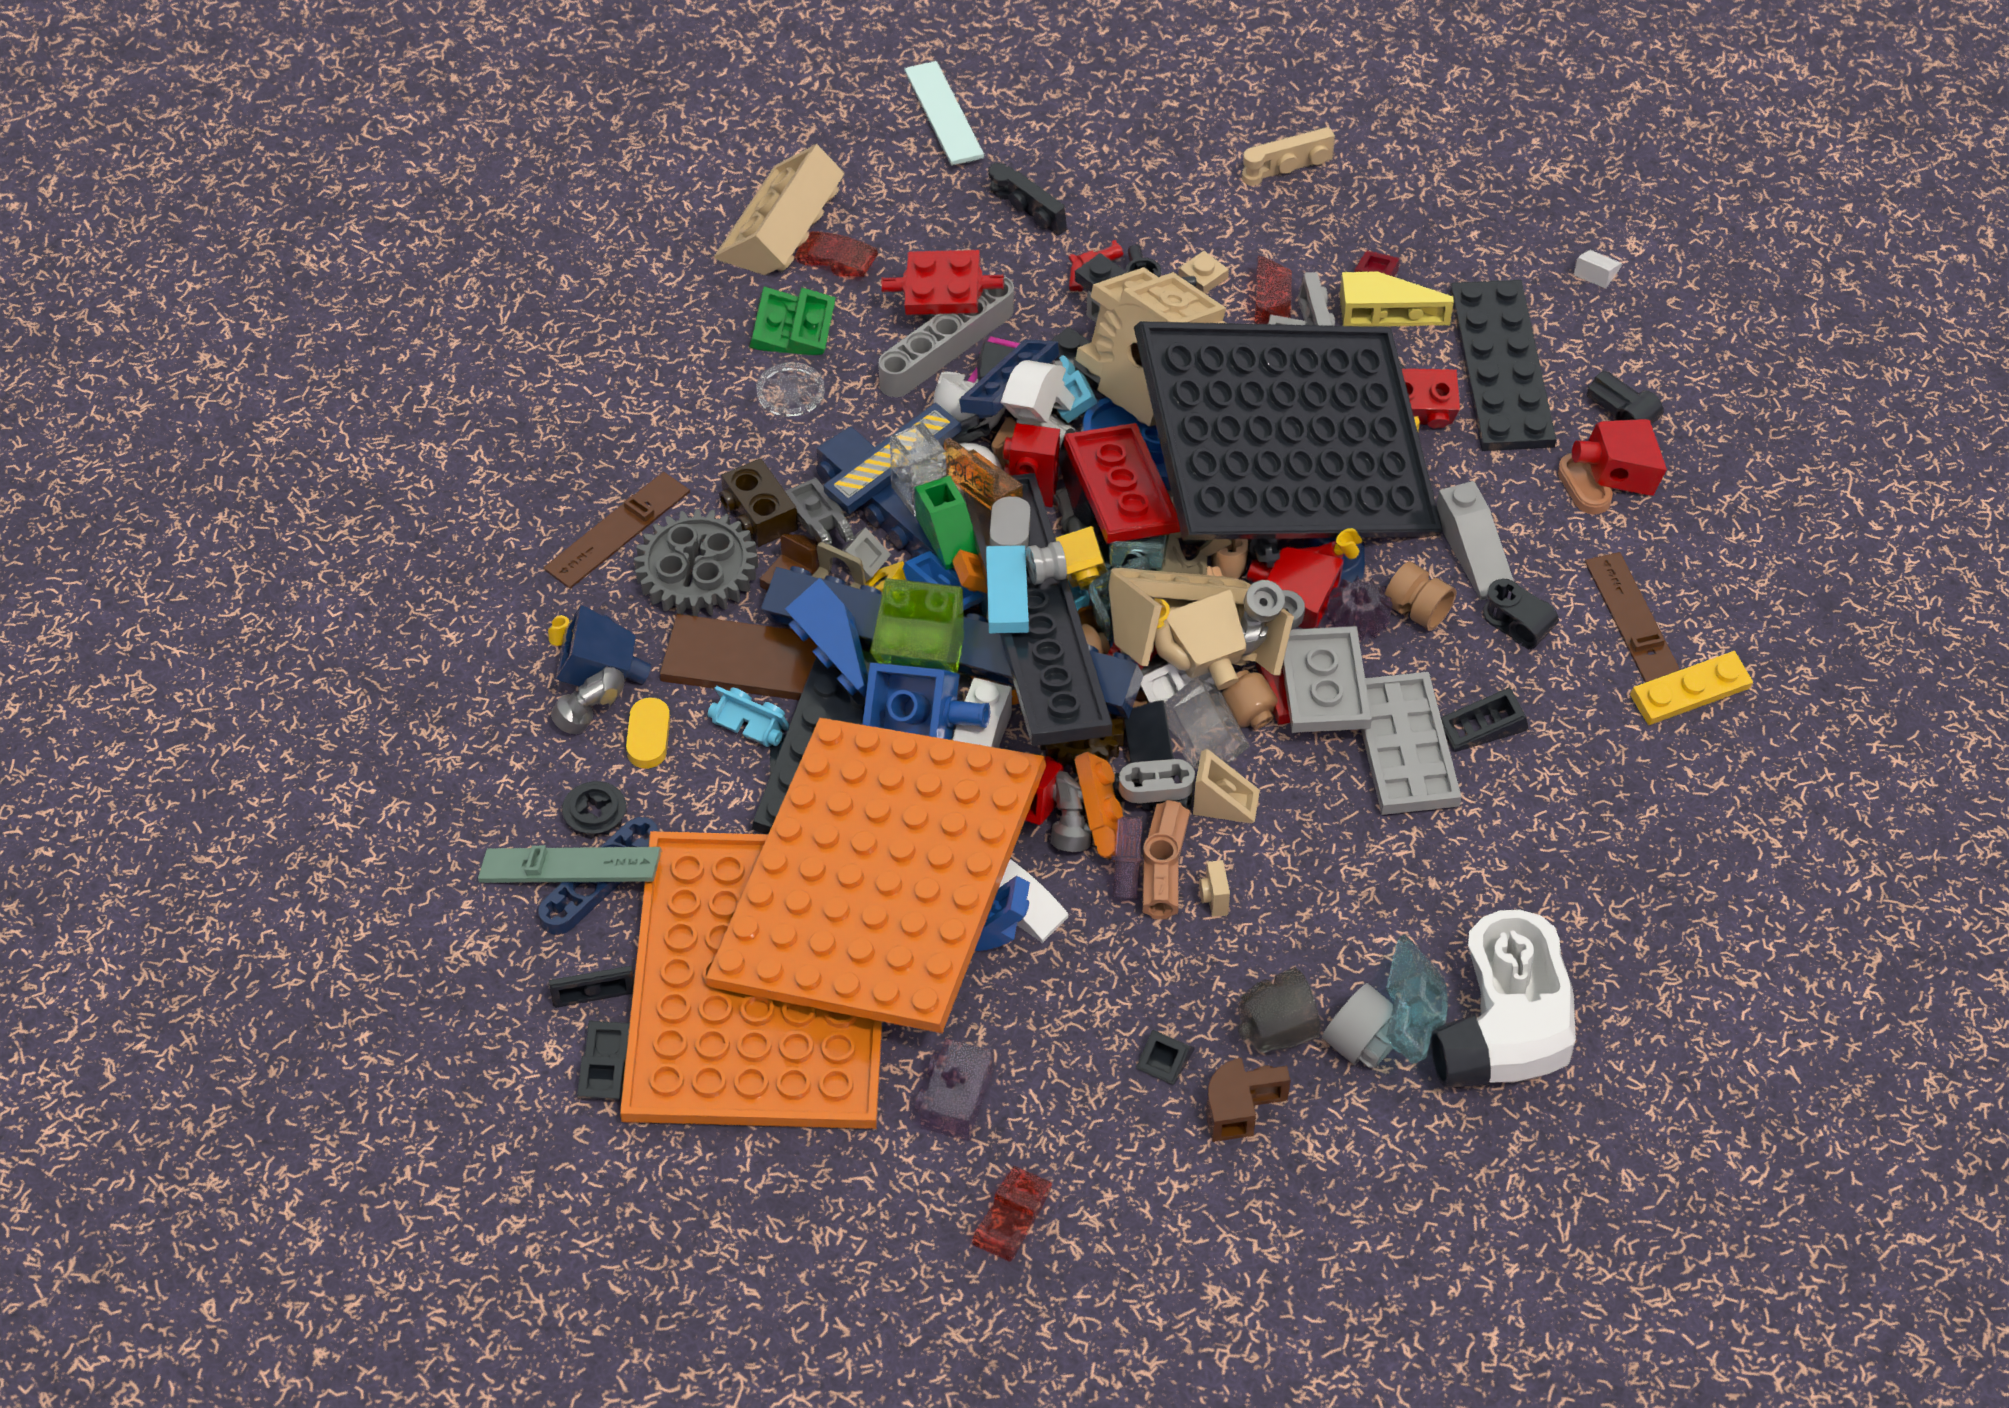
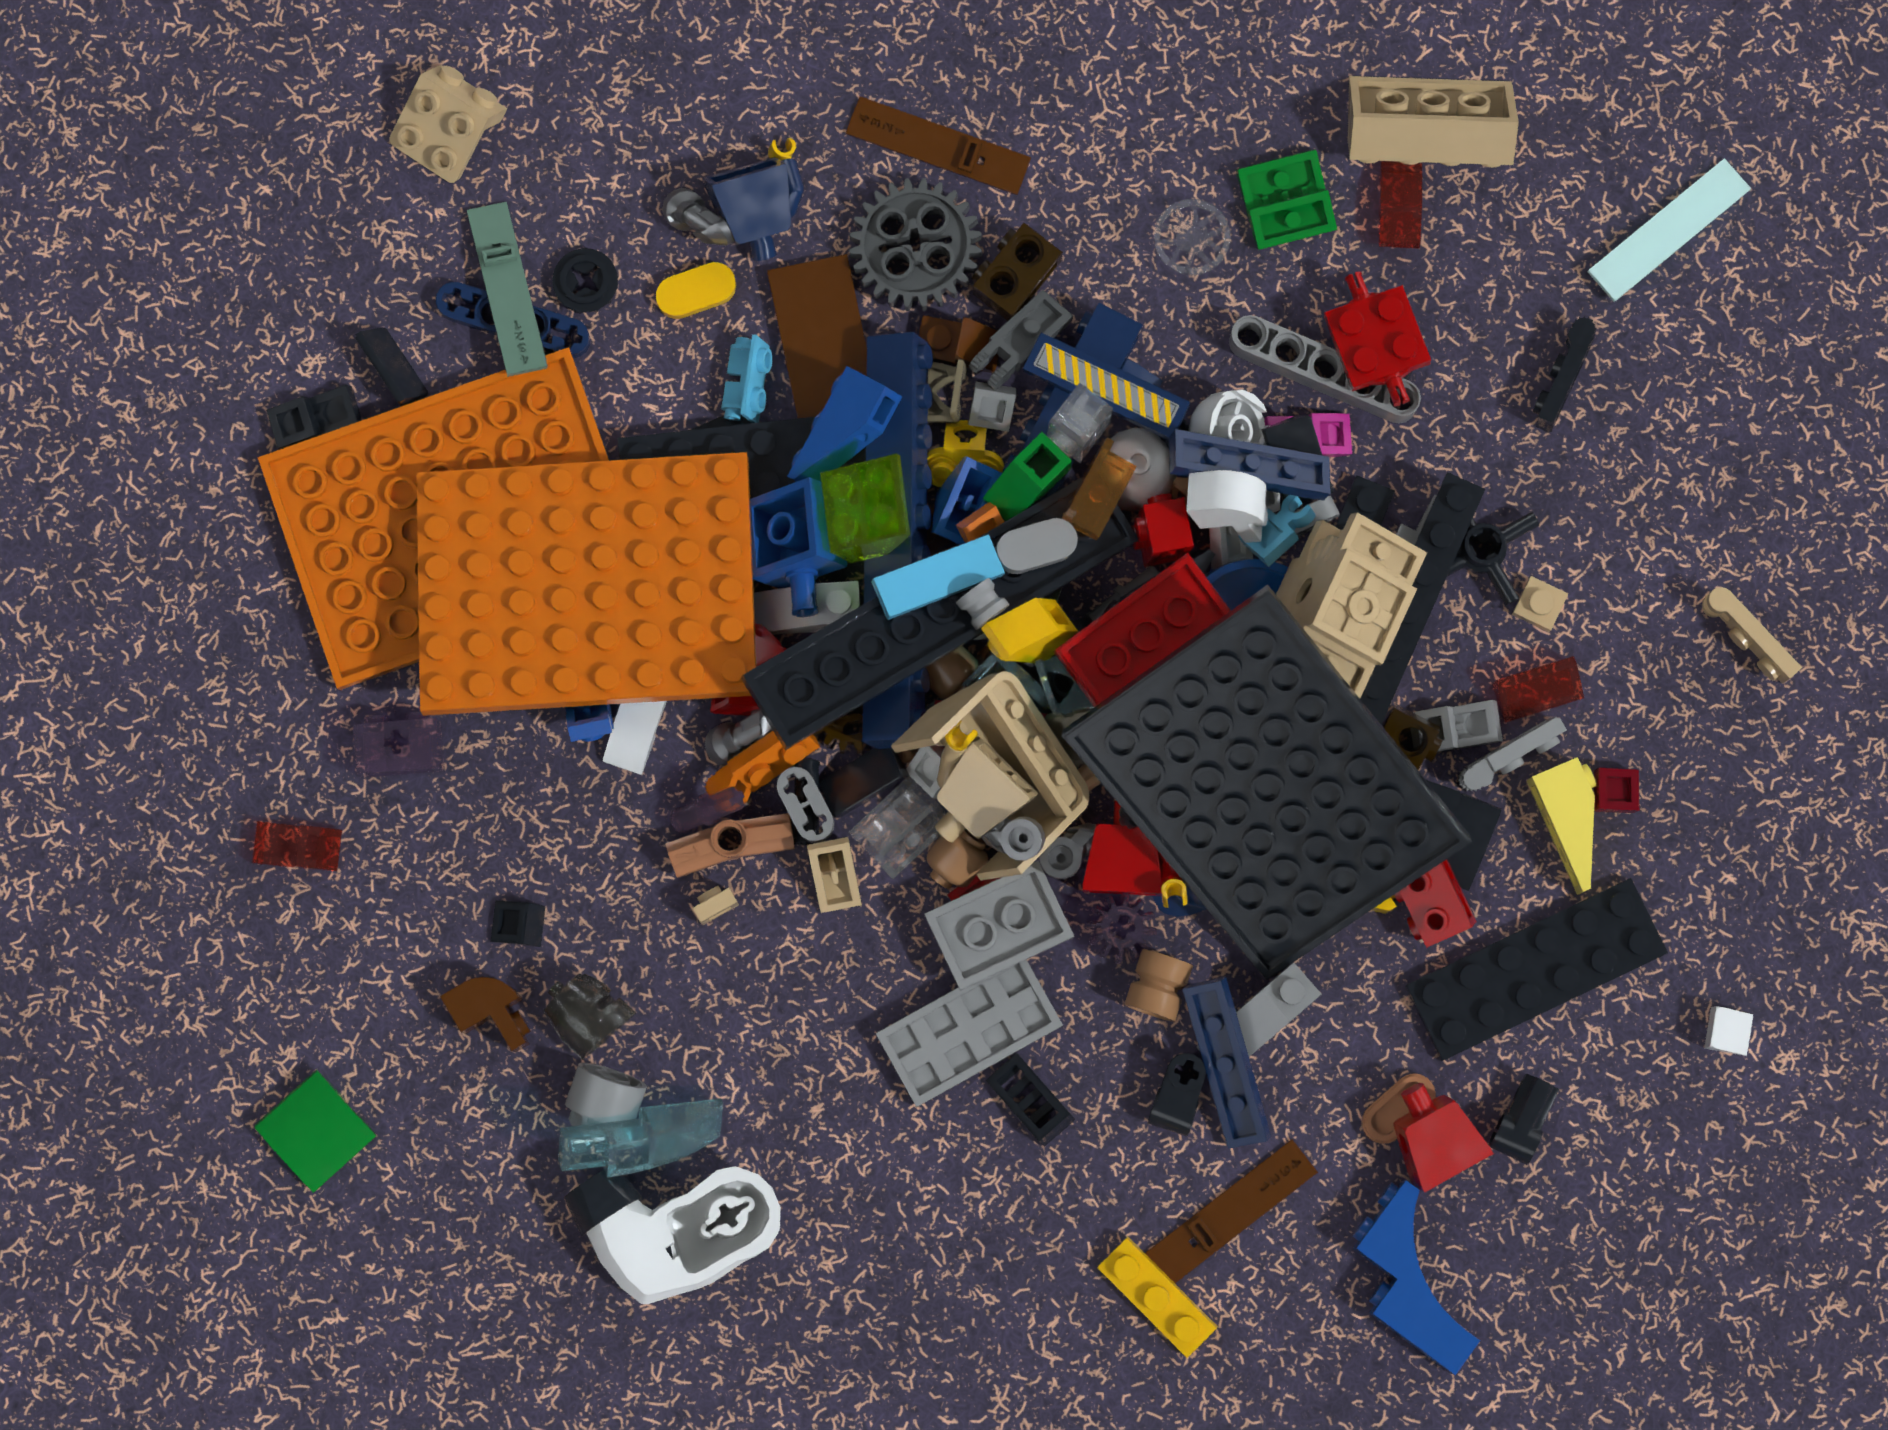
camera: 70 degrees right, 30 degrees up
(391, 865) = (445, 121): none -> tan bracket
(1112, 253) = (1498, 477): red piece -> none
(1300, 1286) = (315, 1131): none -> green slope
(1488, 562) = (1227, 1062): none -> dark blue plate
(1752, 518) = (1407, 1302): none -> blue arch

